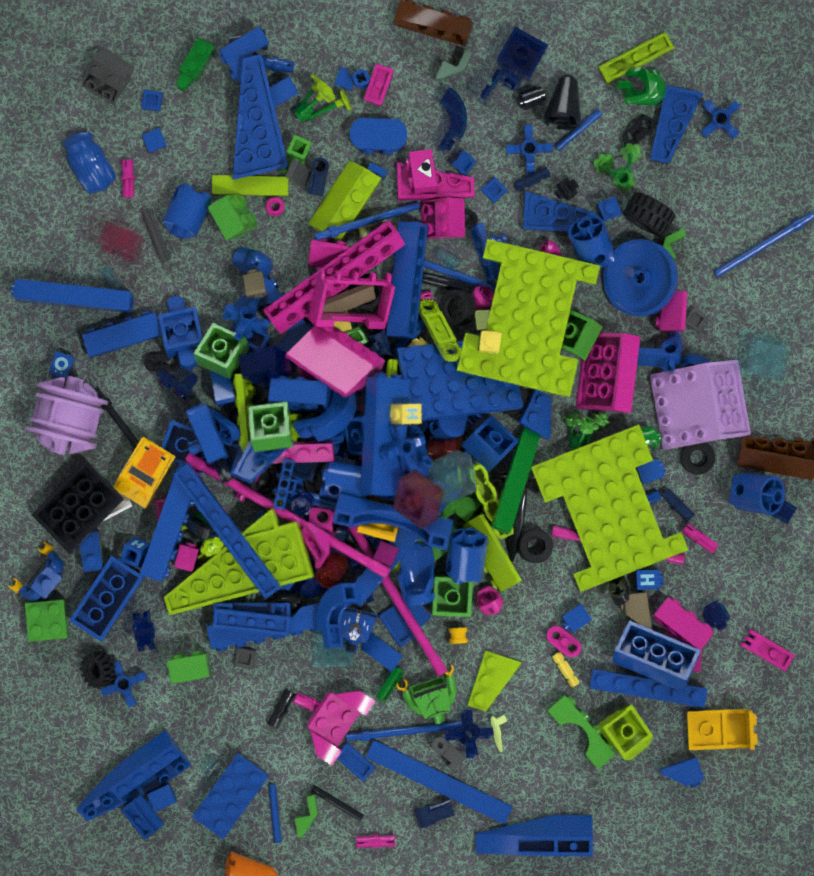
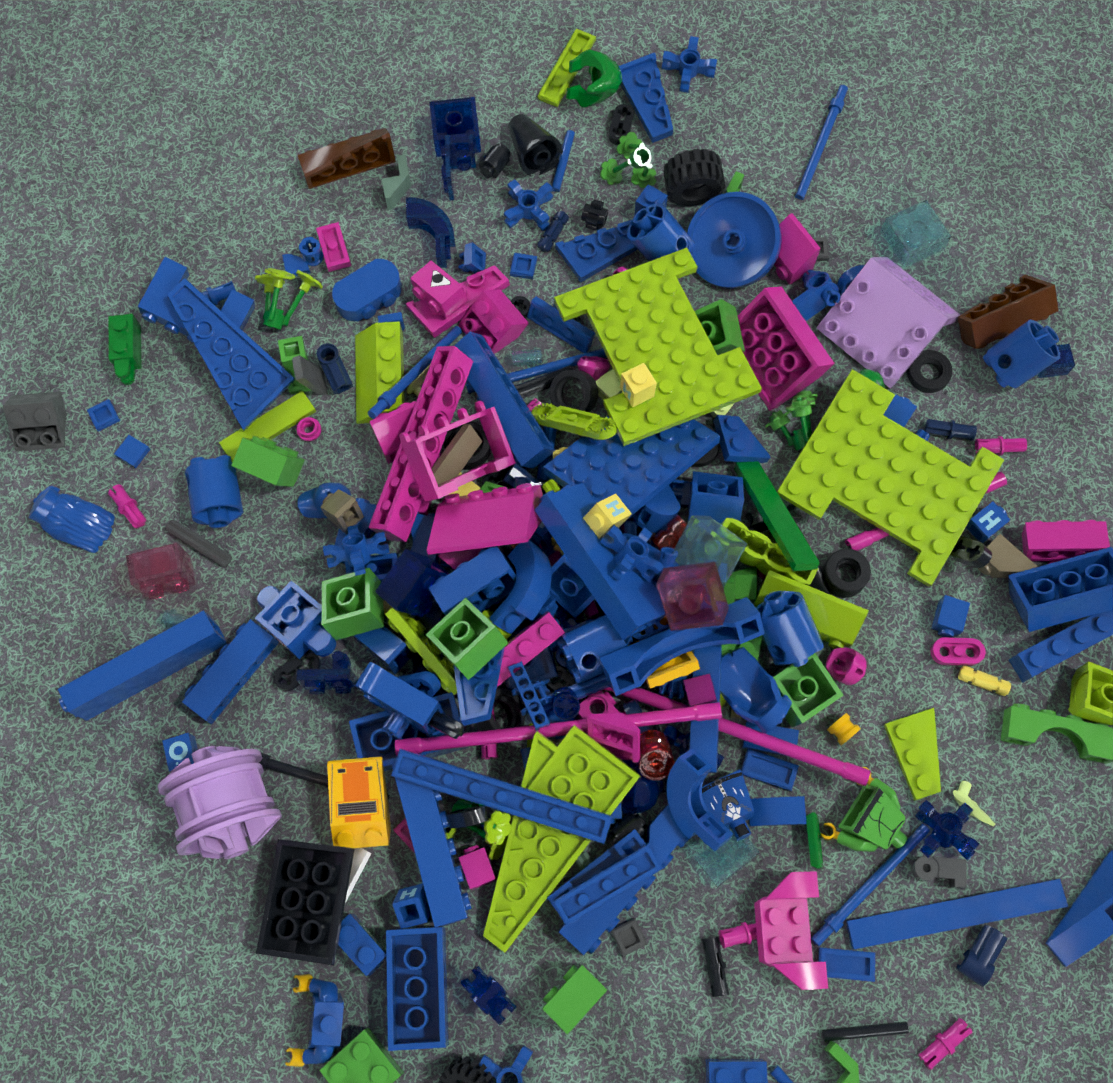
camera: 35 degrees left, 15 degrees down
(716, 615) = (1085, 507): clear blue head -> none

